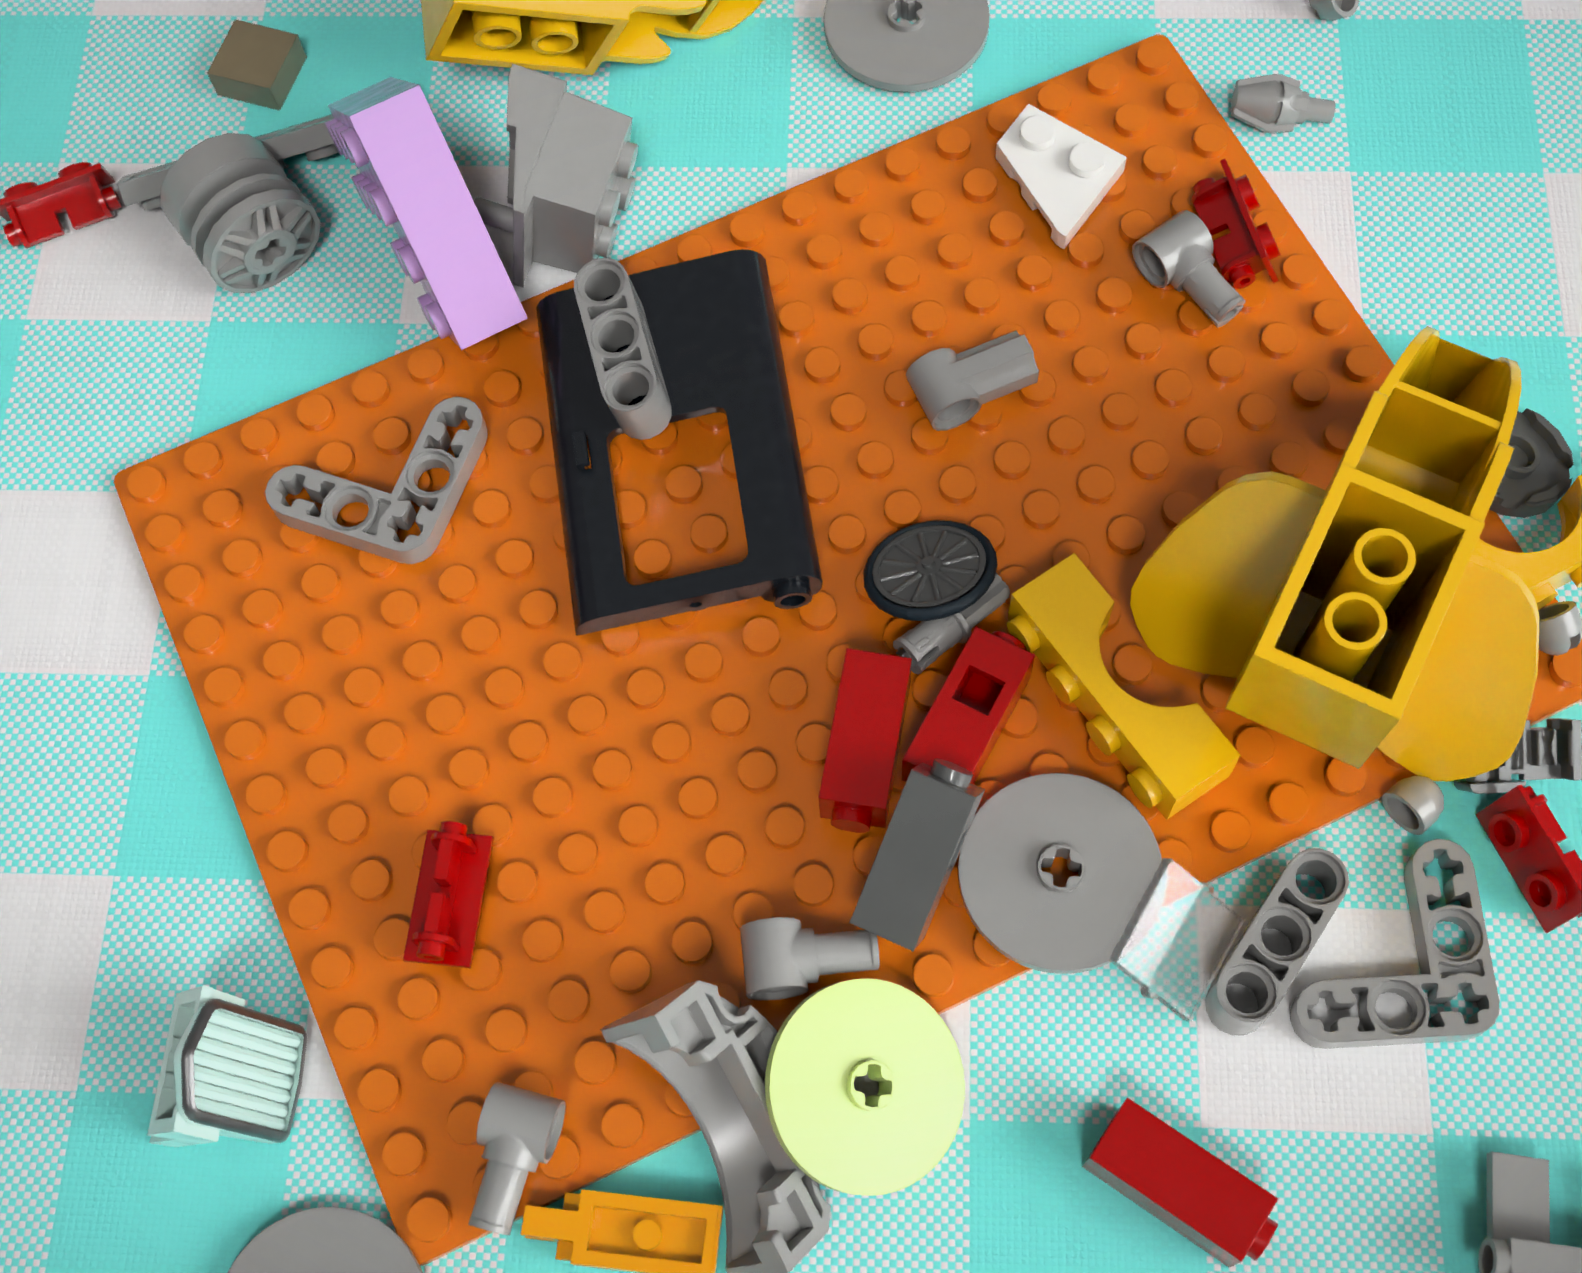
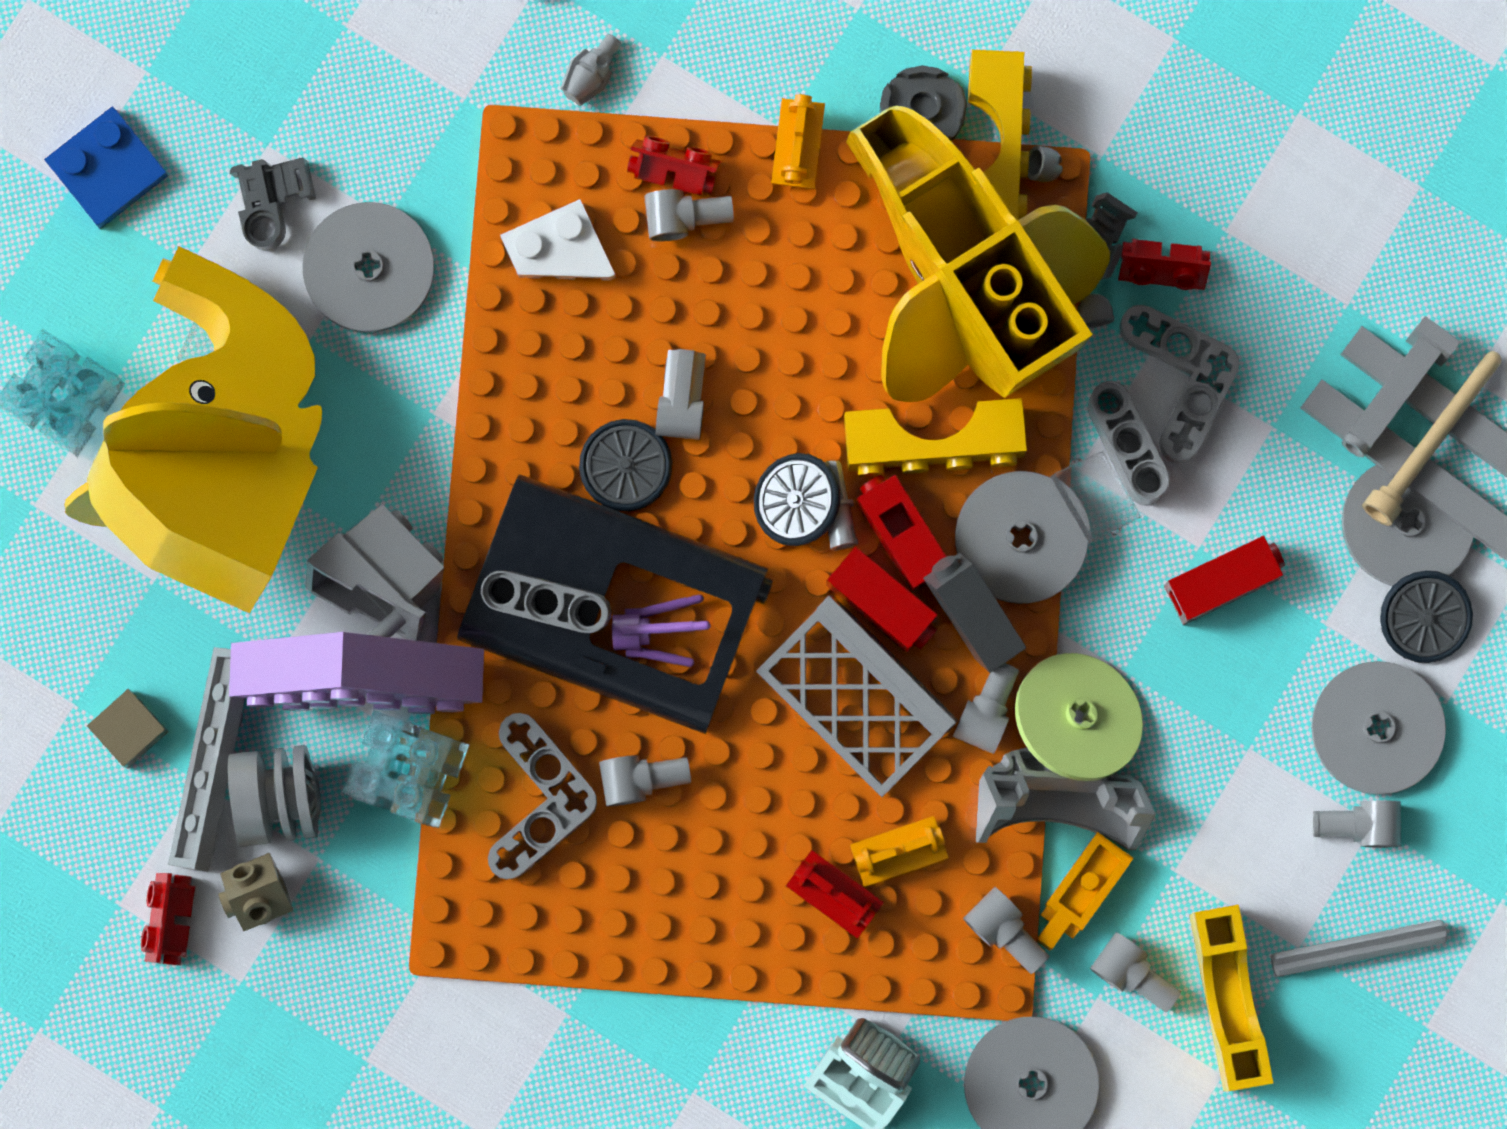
camera: 65 degrees left, 15 degrees up
(124, 262) = (255, 892): none -> dark tan brick
(345, 330) = (381, 777): none -> clear light blue brick
(467, 573) = (630, 779): none -> light grey pin
(548, 947) = (899, 851): none -> light orange hinge
(656, 481) = (633, 630): none -> medium lavender plant
(780, 798) = (884, 668): none -> light grey fence
(850, 372) = (625, 465): none -> dark grey wheel
(1362, 340) = (798, 142): none -> light orange hinge

